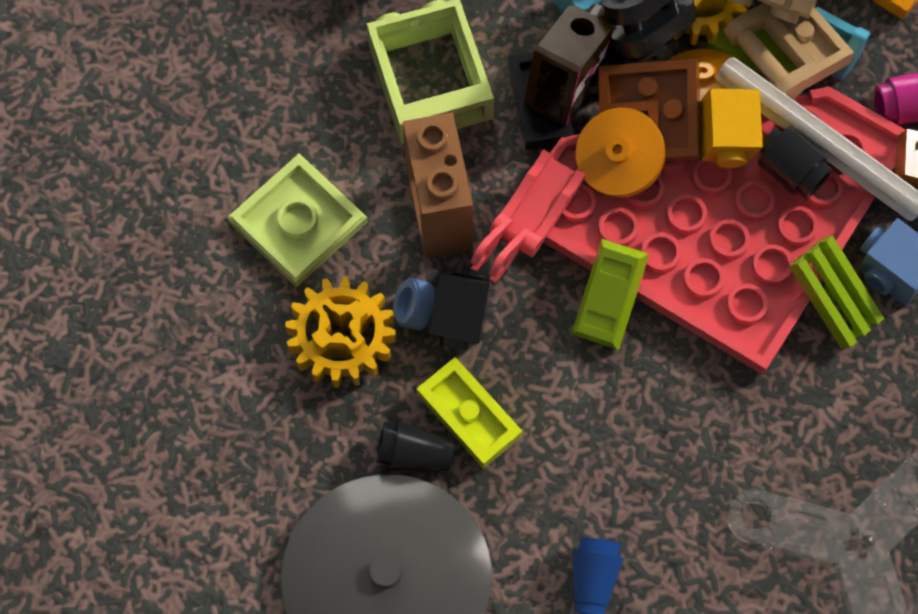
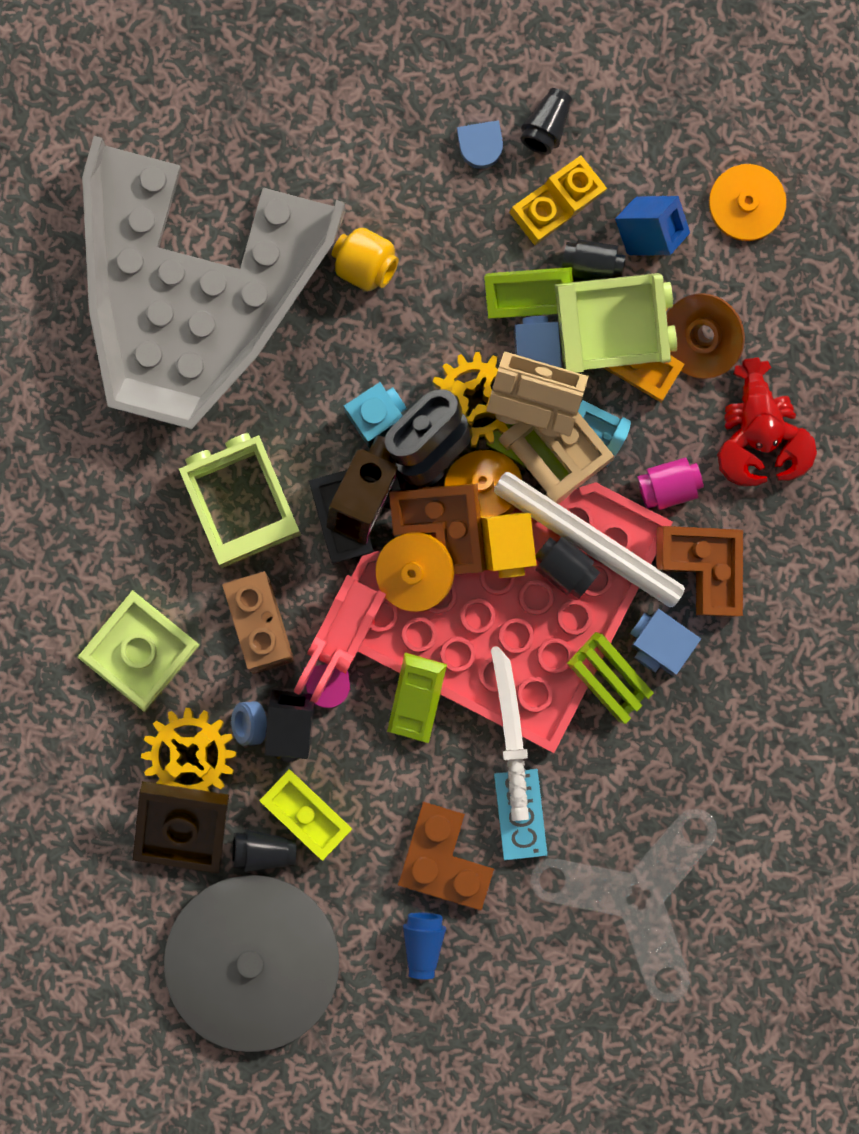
camera: 10 degrees left, 15 degrees up
(321, 406) = (180, 827): none -> dark brown plate
(515, 281) = (335, 690): none -> dark pink tile
(616, 493) = (431, 862): none -> dark orange plate
(719, 362) = (512, 735): none -> white sword
(721, 439) = (521, 837): none -> medium azure tile

